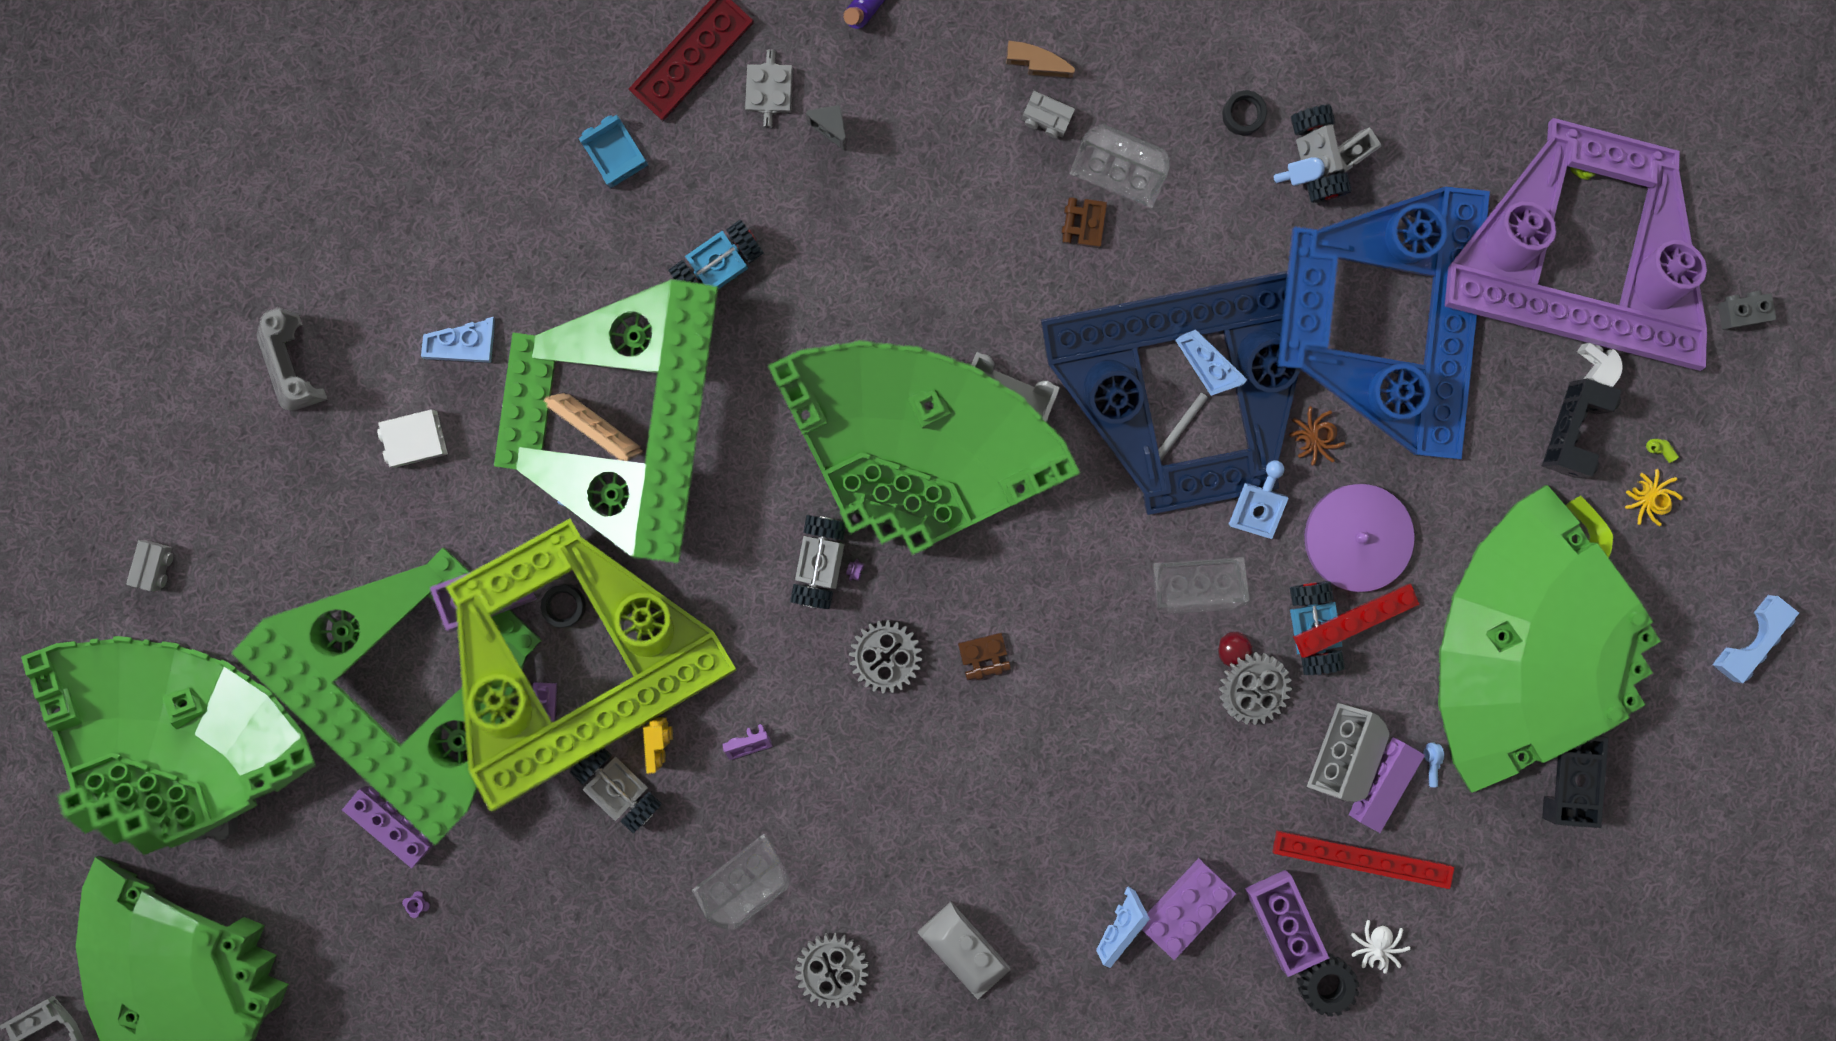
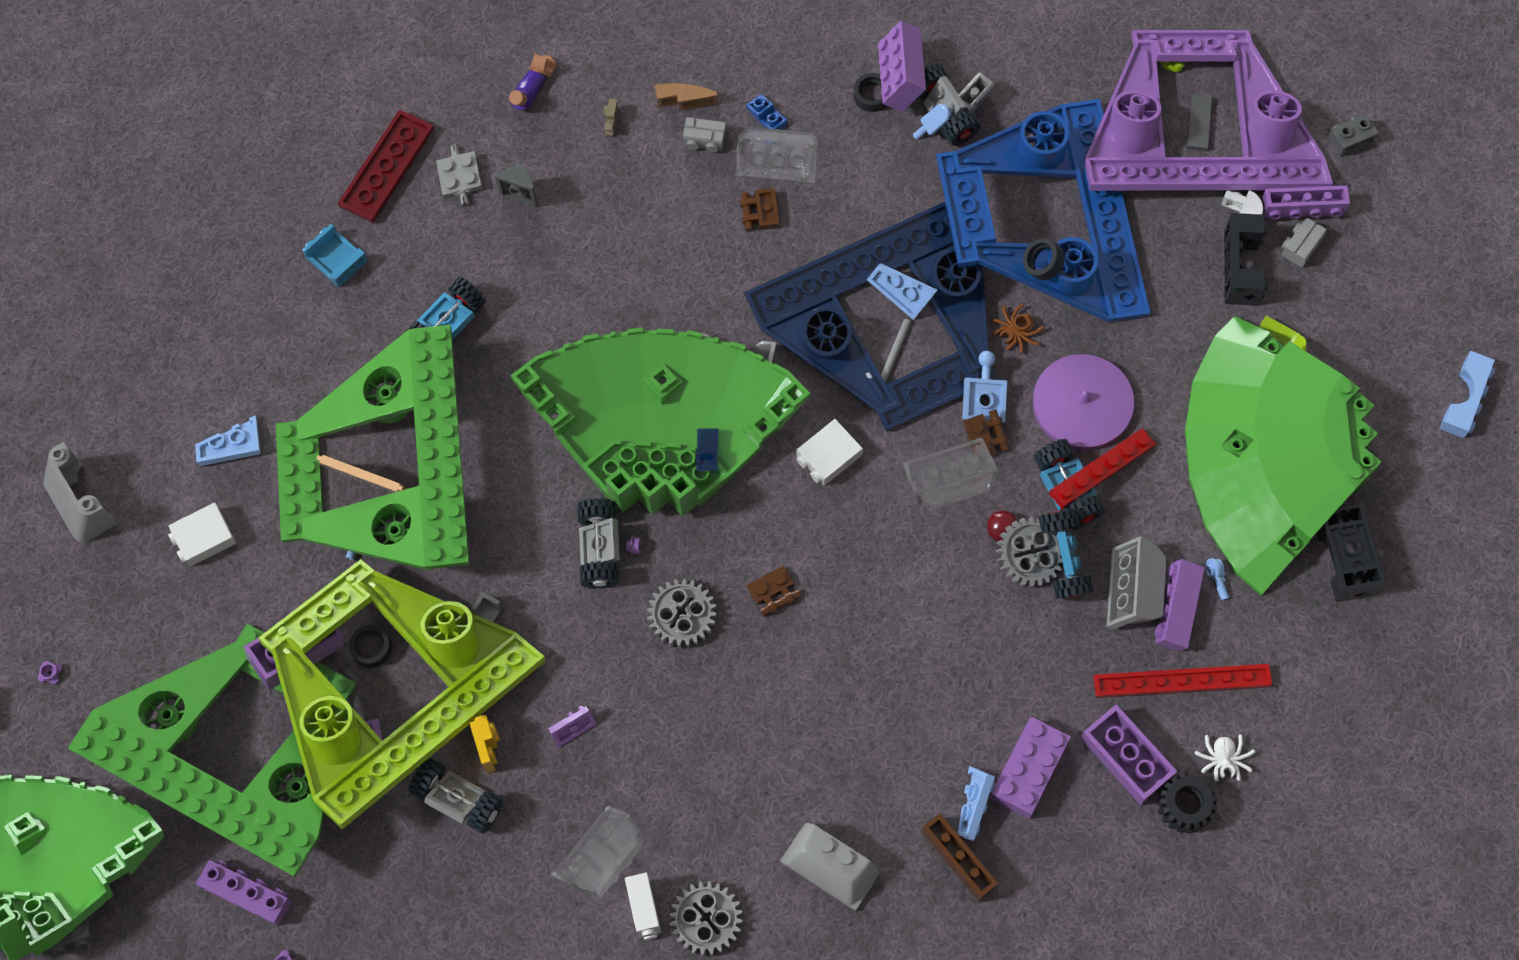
camera: 20 degrees left, 20 degrees down
(226, 543) = (44, 670): none -> medium lavender plate
(689, 599) = (487, 607): none -> flat silver panel
(773, 948) = (643, 906): none -> white brick
(951, 59) = (610, 114): none -> dark tan plate
(956, 492) = (707, 449): none -> clear blue slope
(1081, 524) = (828, 452): none -> white brick
(1091, 979) = (959, 857): none -> reddish brown brick
(1122, 107) = (766, 114): none -> blue slope
(1241, 545) = (977, 427): none -> reddish brown plate
(1287, 96) = (901, 66): none -> medium lavender brick
(1289, 736) = (1058, 521): none -> black plate
(1387, 391) = (1032, 252): none -> black tyre
(1587, 247) = (1199, 122): none -> dark grey tile
(1649, 421) = (1304, 242): none -> light grey brick
(1653, 497) = (1330, 302): yellow animal -> none
(1663, 447) = (1324, 260): lime arm -> none
(1669, 378) = (1305, 202): none -> medium lavender brick

